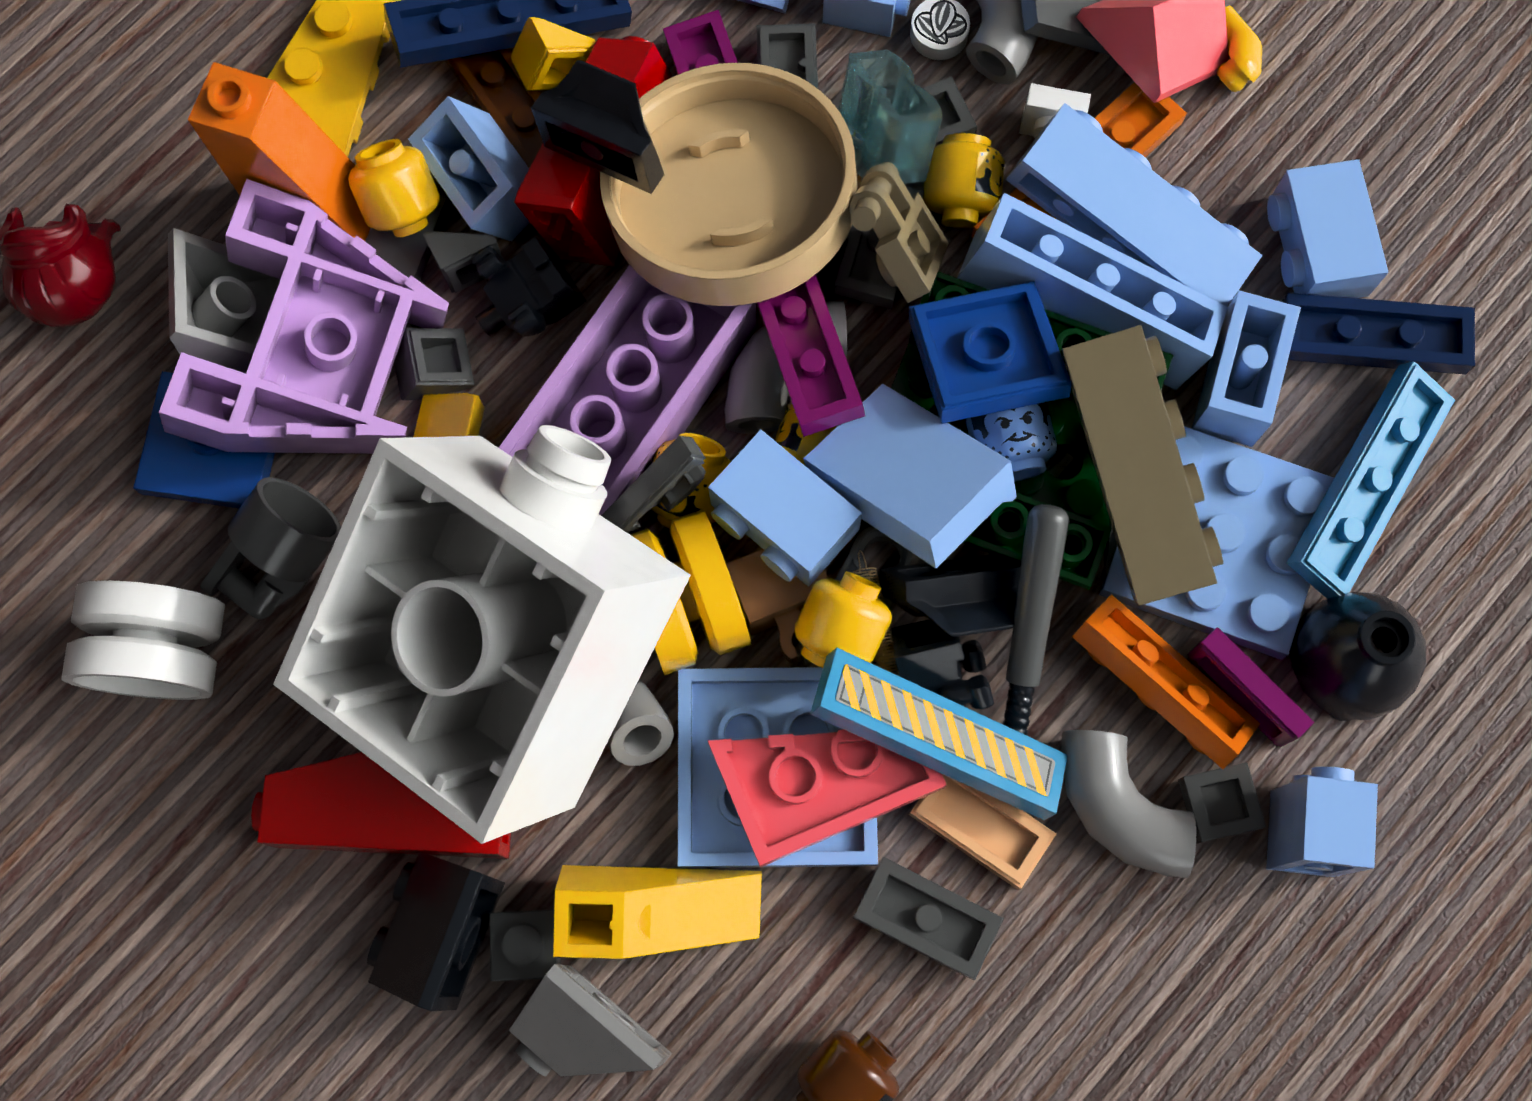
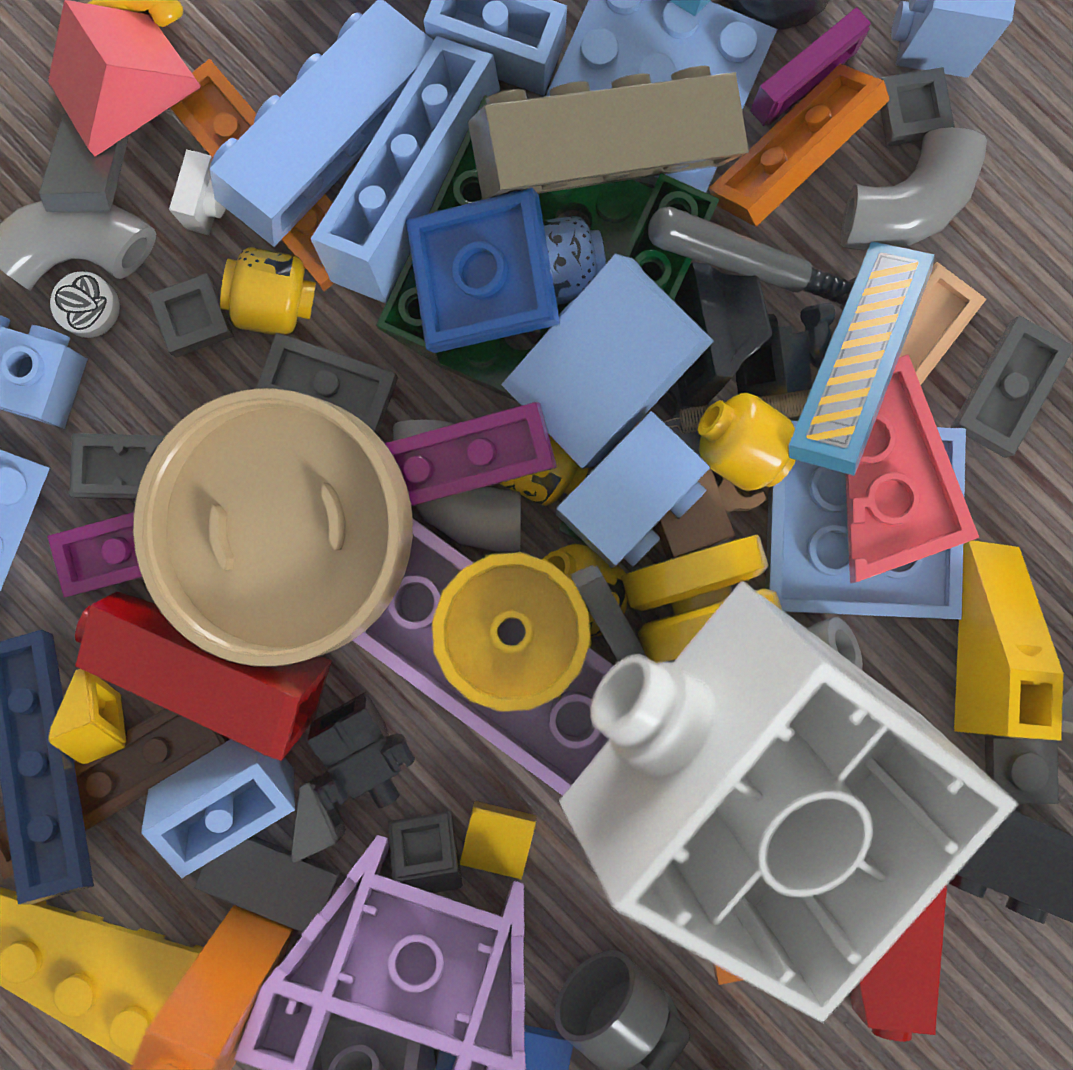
camera: 90 degrees left, 10 degrees up
(393, 187) = (239, 894): yellow head -> none
(599, 124) = (210, 660): black slope -> none
(630, 353) = (478, 659): none -> yellow wheel
(889, 114) = (196, 359): clear light blue brick -> none
(908, 235) = (331, 349): dark tan plate -> none

